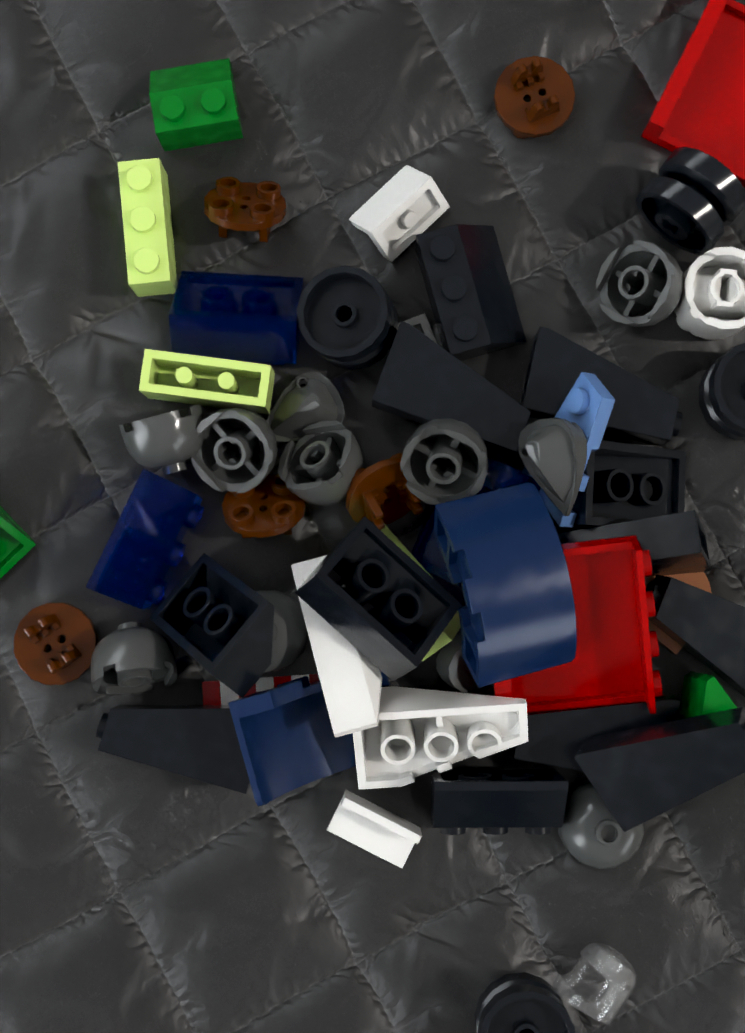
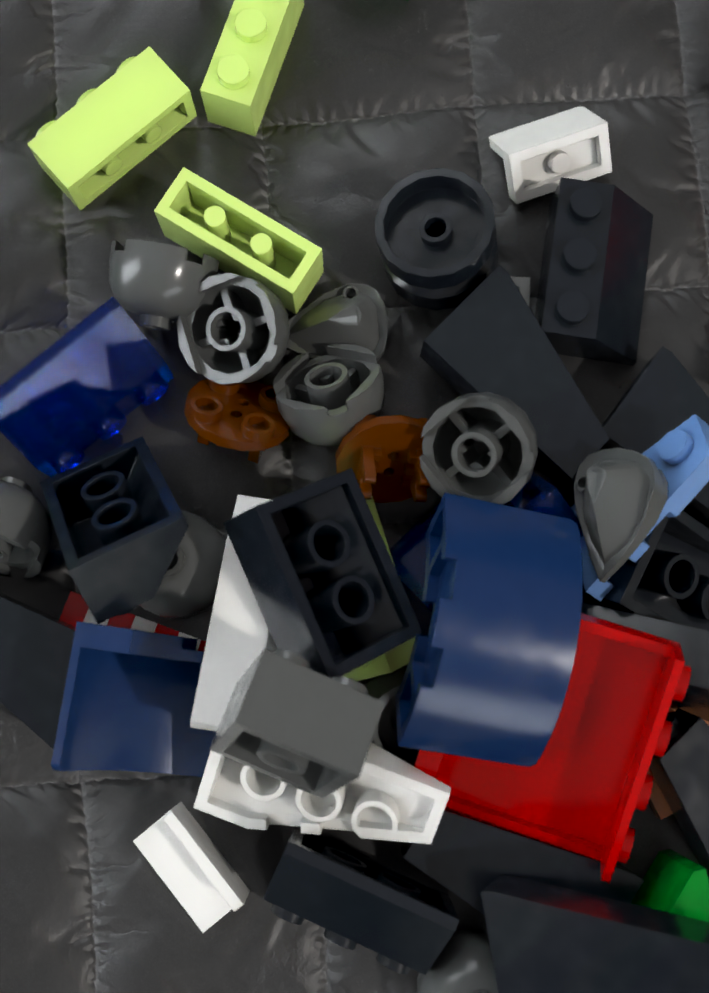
camera: 20 degrees right, 5 degrees down
(74, 335) = (113, 127): none -> yellowish green brick
(236, 317) = (307, 185): clear blue slope -> none
(245, 206) = (376, 68): reddish brown plate -> none
(407, 704) = (298, 724): none -> dark grey brick

